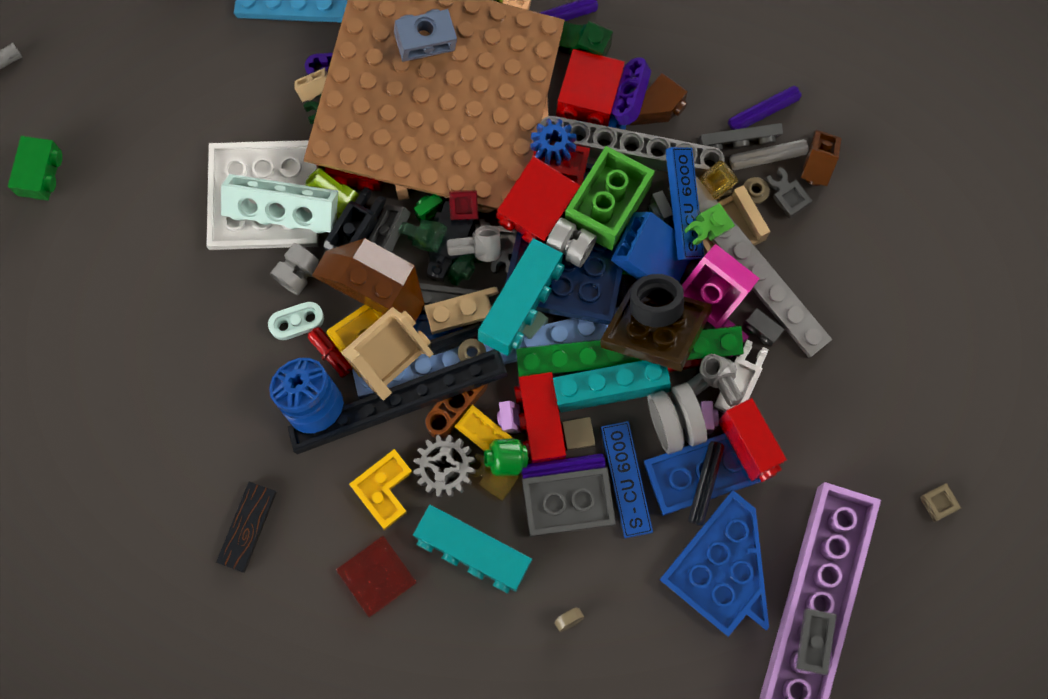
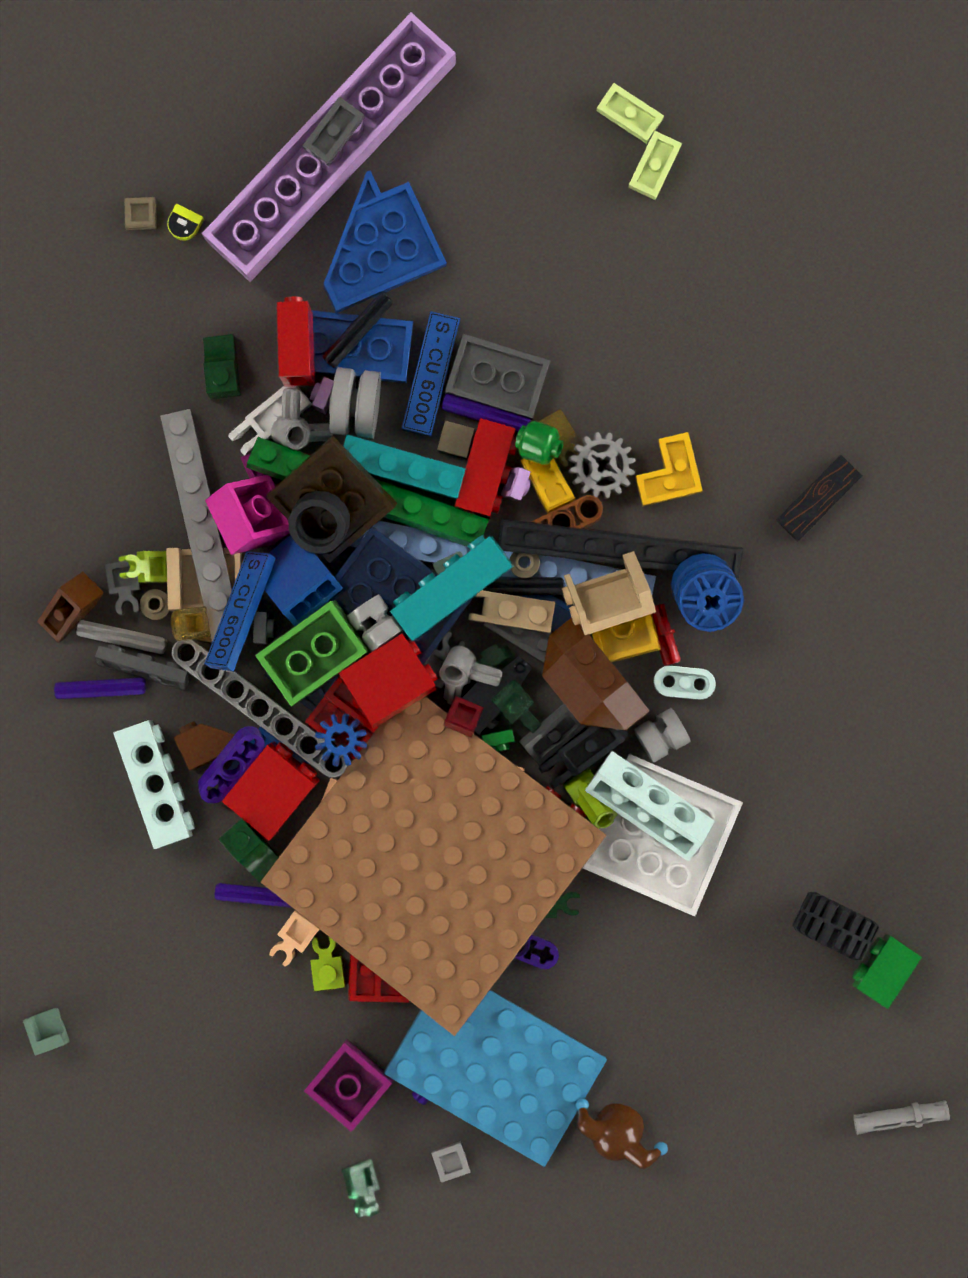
camera: 150 degrees left, 10 degrees up
(88, 178) = (835, 926): none -> black tyre
(311, 85) = (558, 932): tan piece -> none
(376, 576) = (714, 392): clear red plate -> none
(414, 45) = (439, 913): sand blue brick -> none
(472, 548) = (611, 374): teal brick -> none
(569, 619) = (549, 266): dark tan tile -> none
(681, 41) = (129, 743): none -> light aqua brick
(710, 224) = (223, 577): bright green plate -> none
(763, 327) = (220, 459): dark grey piece -> none
(777, 212) = (147, 565): none -> lime plate
(804, 402) = (221, 367): none -> dark green arch
(900, 511) = (184, 223): none -> tile

